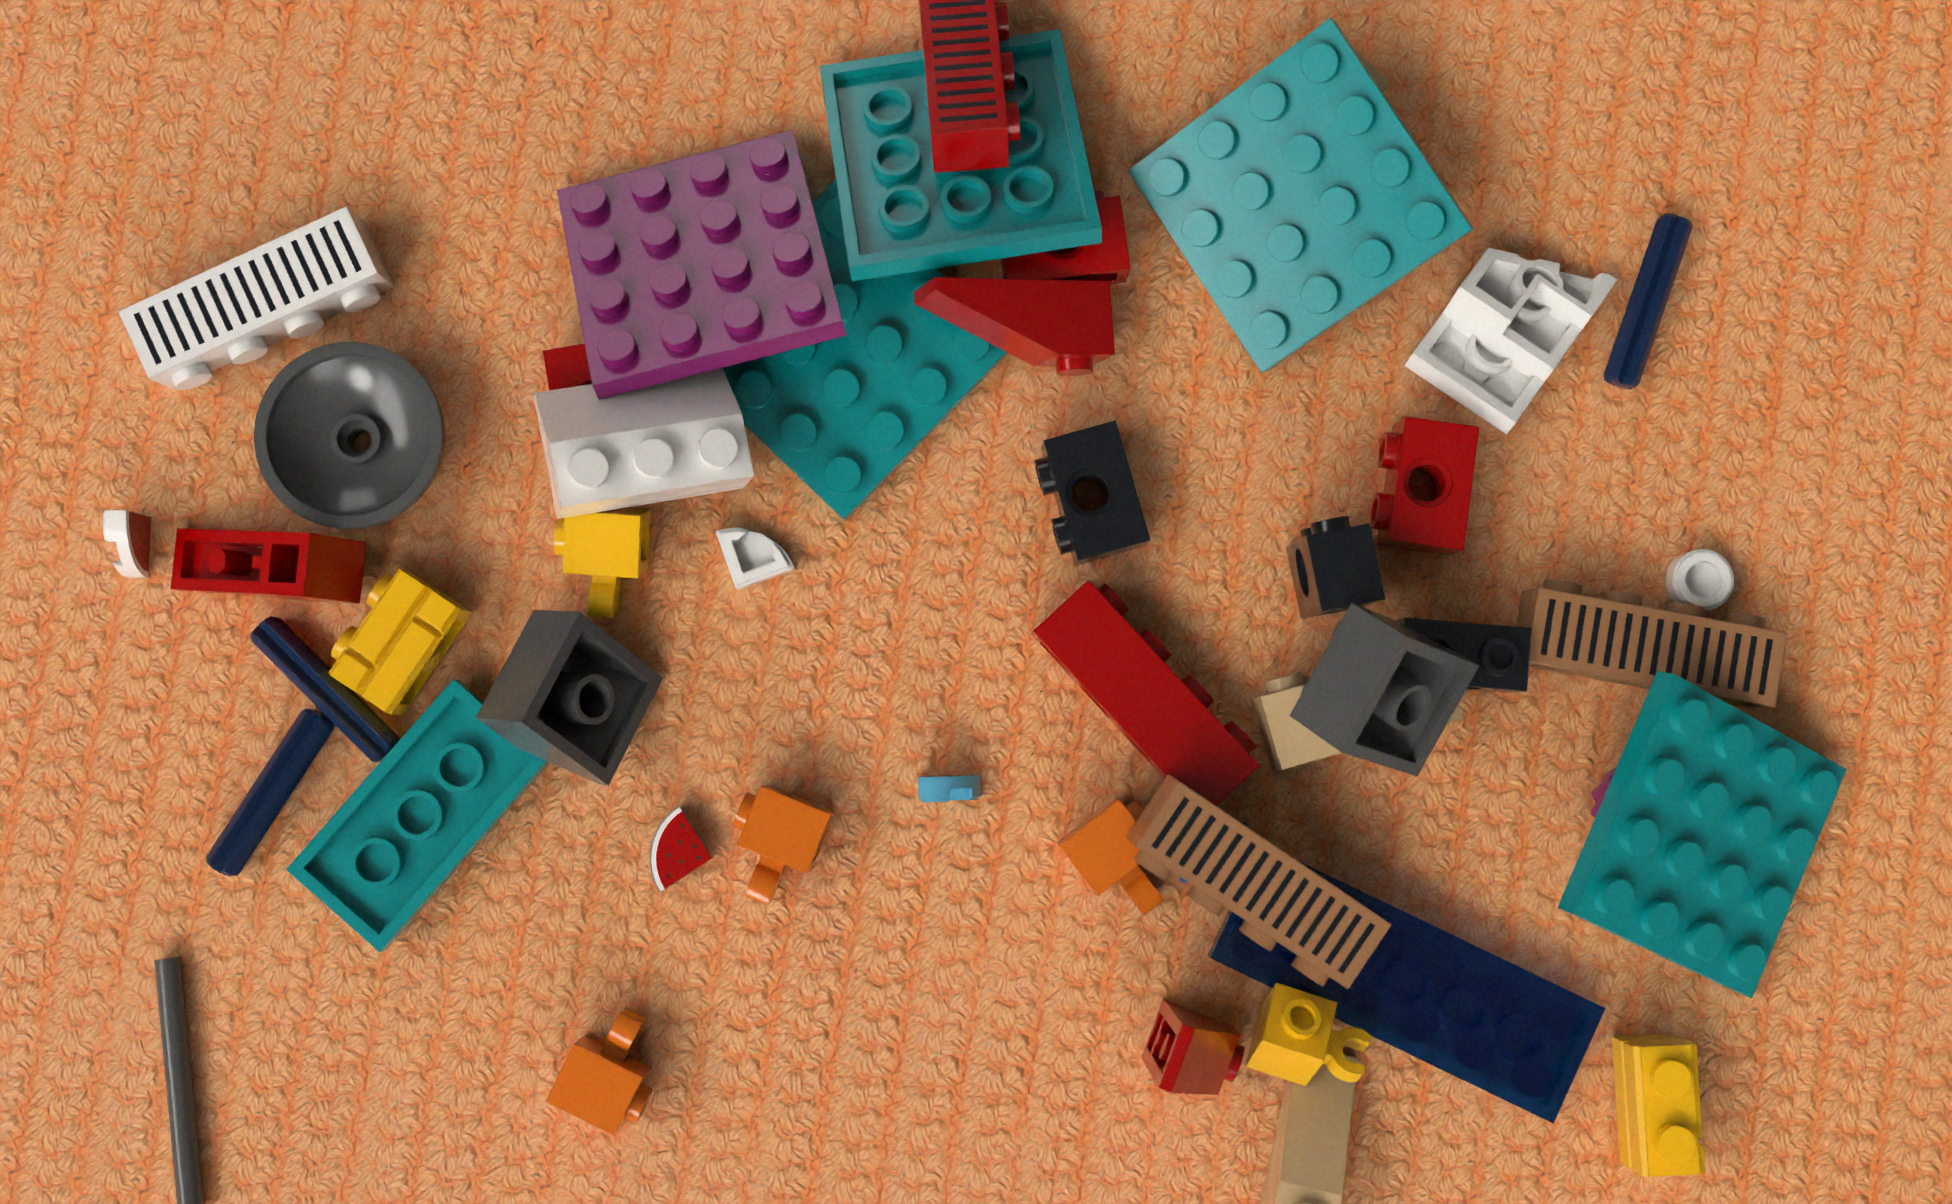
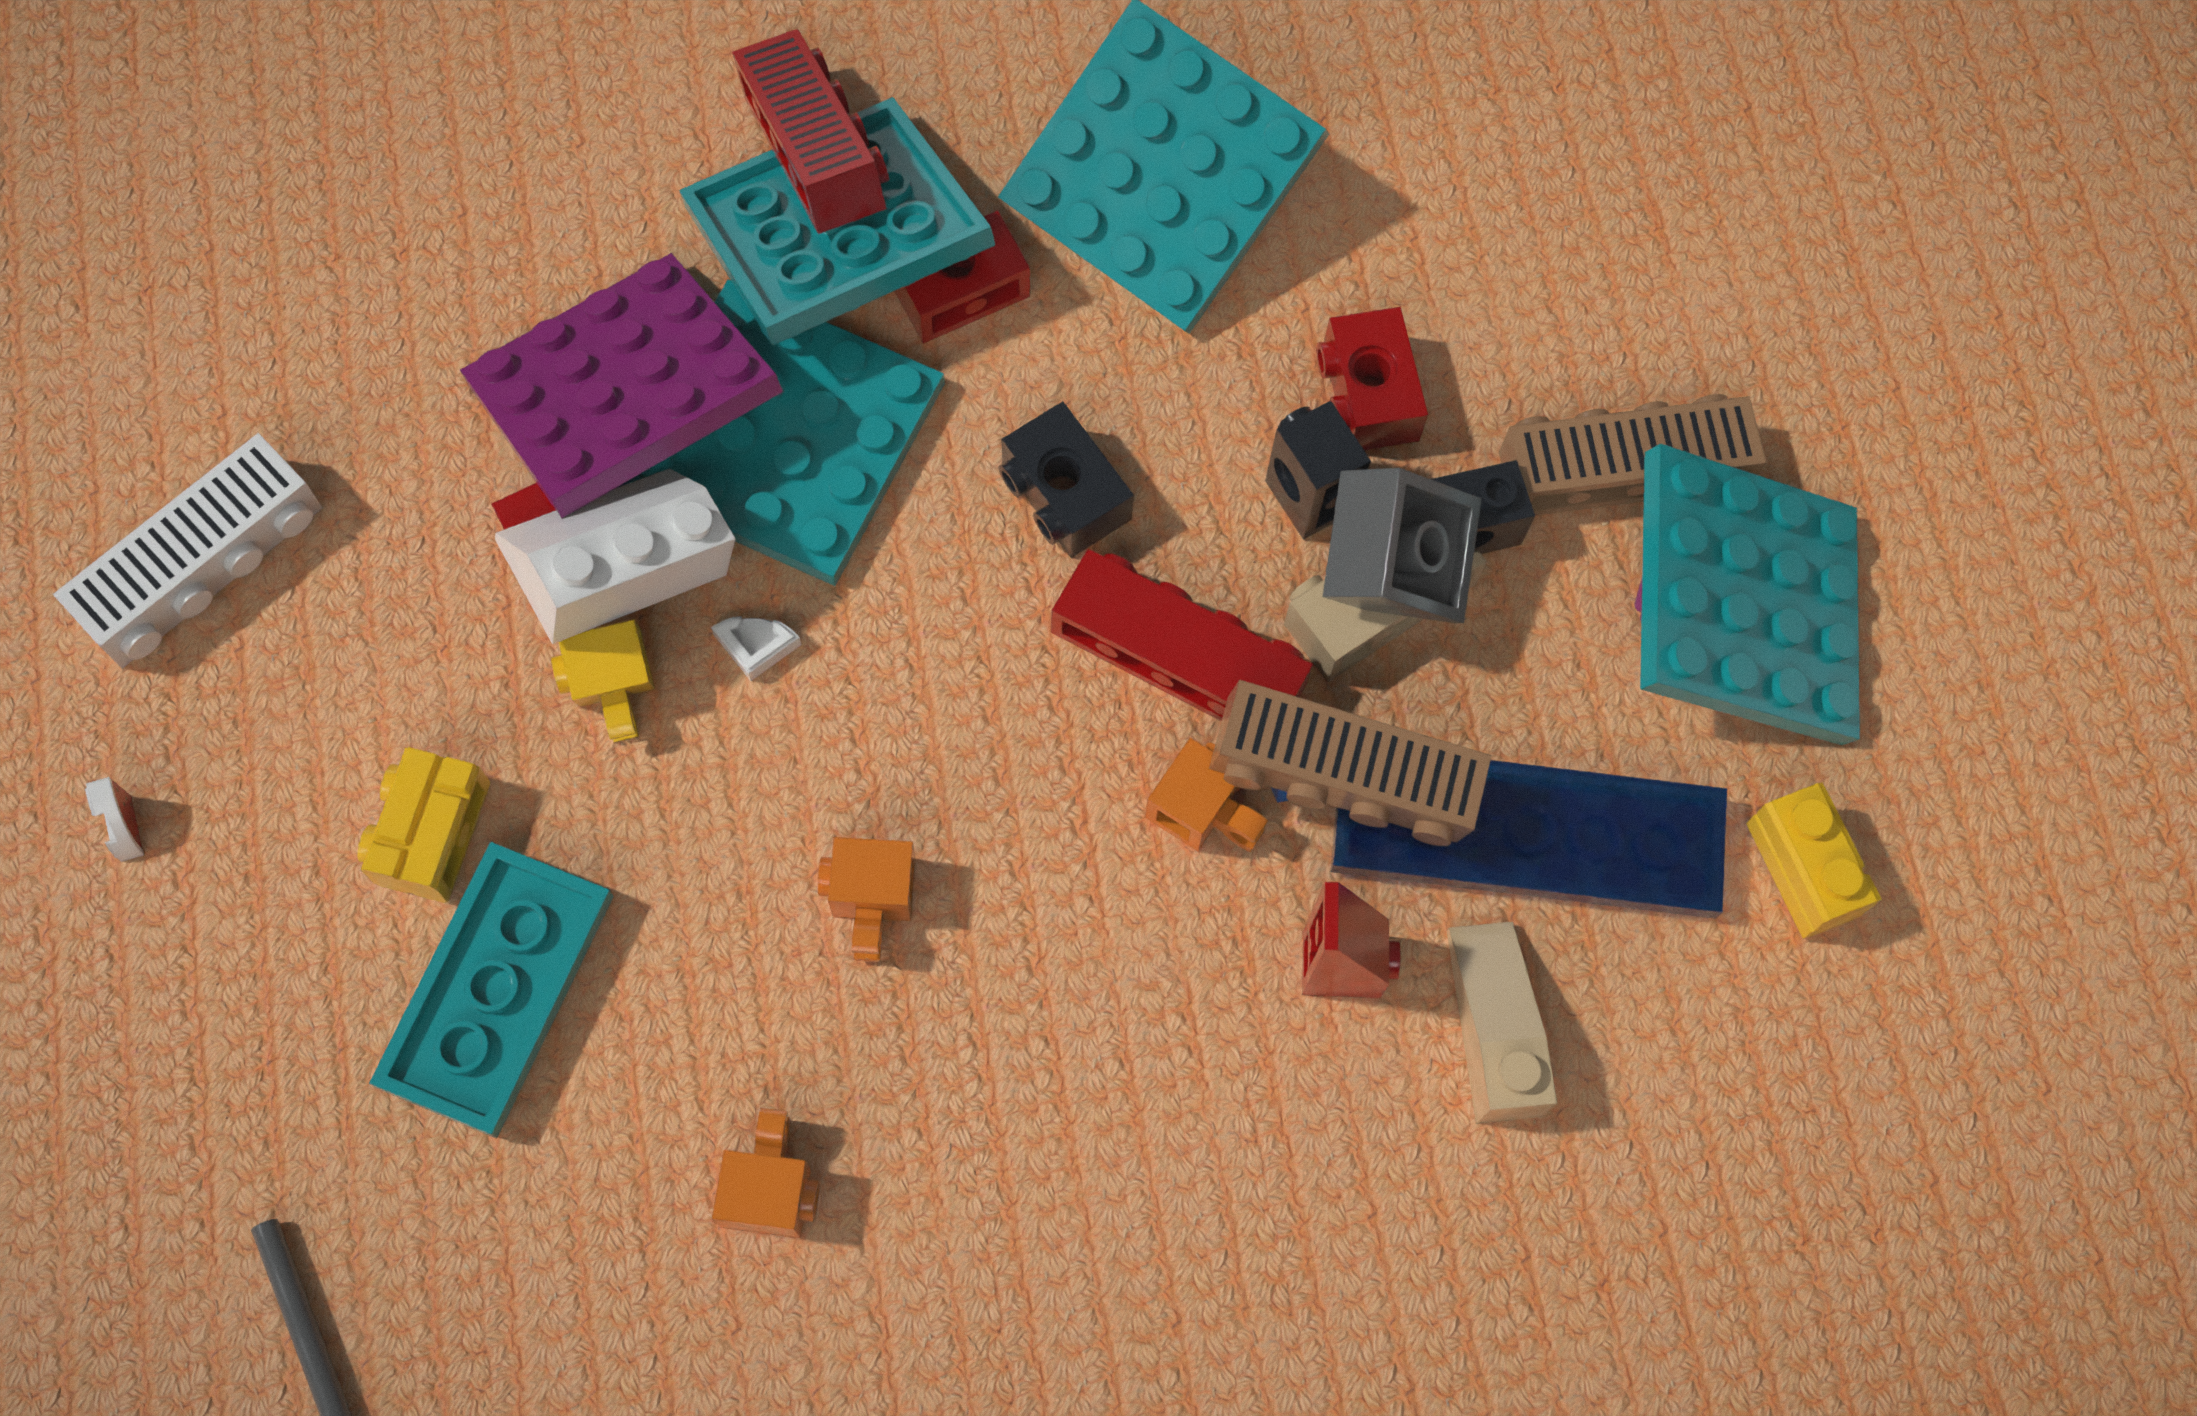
camera: 20 degrees left, 15 degrees down
(269, 564) = (269, 792): red slope -> none
(269, 792) = (329, 1020): dark blue axle -> none
(310, 429) = (299, 612): dark grey dish -> none
(328, 694) = (357, 898): dark blue axle -> none
(570, 695) = (614, 814): dark grey slope -> none
(676, 849) = (769, 941): red tile -> none
(949, 788) = (1018, 791): medium azure tile -> none
(1031, 319) = (949, 339): red slope -> none
(1297, 1038) = (1445, 907): yellow brick -> none
(1506, 333) = (1394, 232): white slope -> none
(1648, 301) = (1510, 170): dark blue axle -> none
(1700, 579) = (1655, 381): white tile -> none

